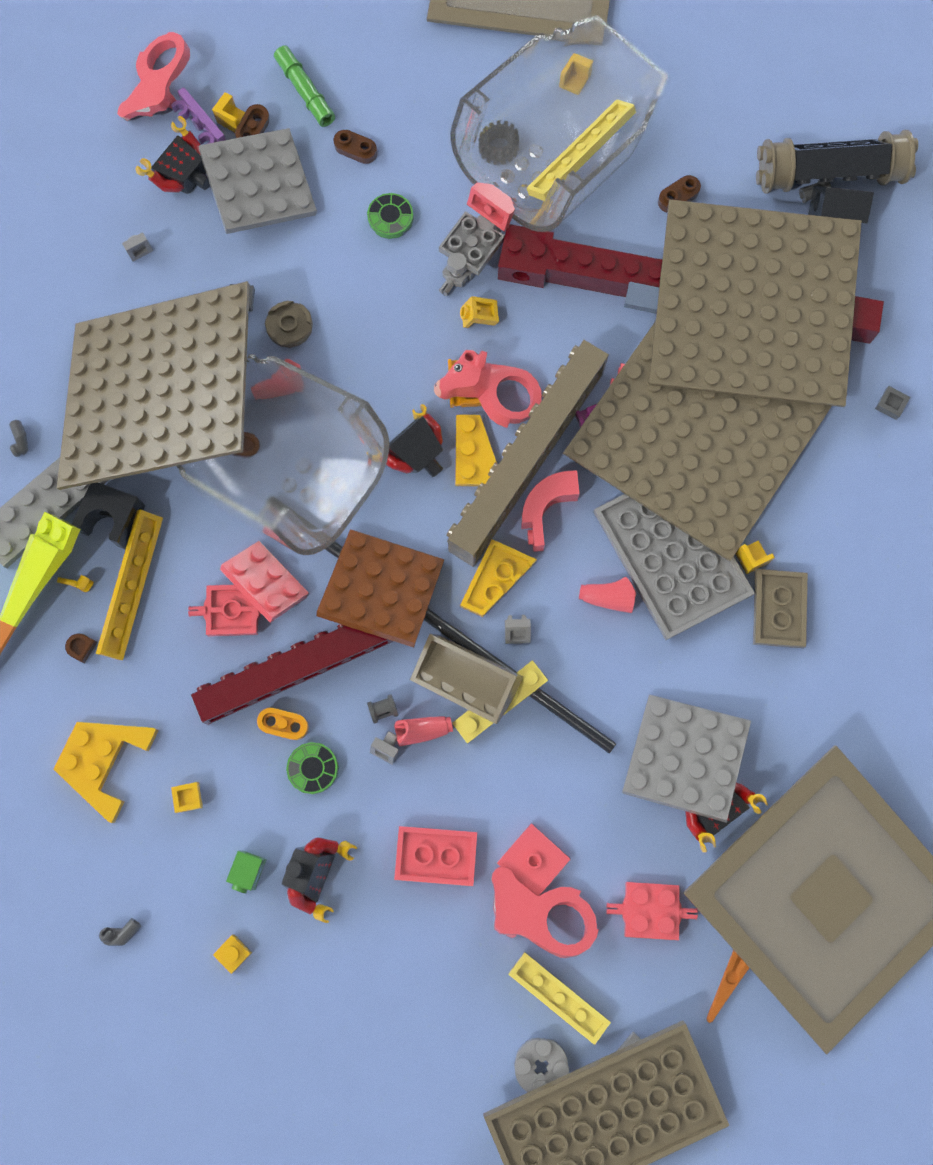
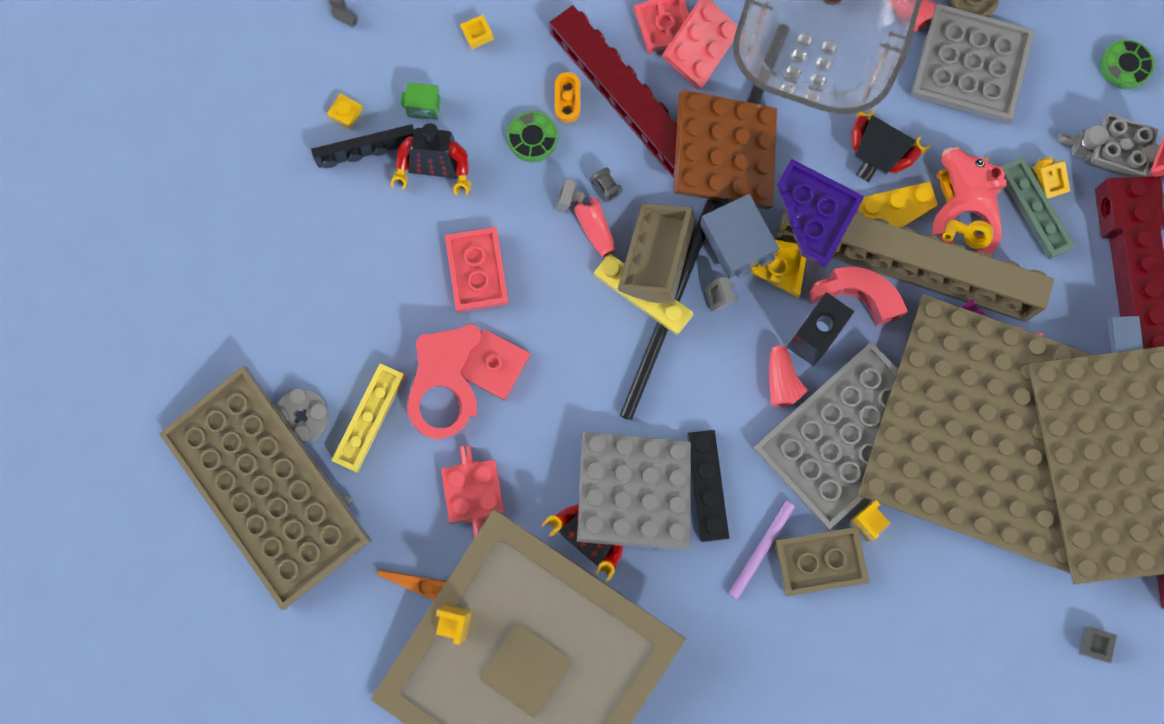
camera: 75 degrees right, 0 degrees up
(279, 951) = (357, 148): none -> black plate
(353, 343) = (972, 63): none -> light grey plate
(472, 598) = (739, 237): none -> sand blue brick
(473, 522) = (817, 210): none -> dark purple plate
(505, 333) = (1036, 208): none -> sand green plate
(521, 390) = (970, 236): none -> yellow plate
(581, 563) = (810, 341): none -> black piece
(692, 689) = (708, 486): none -> black plate
(759, 658) = (761, 550): none -> lavender bar
(779, 956) = (453, 622): none -> yellow panel

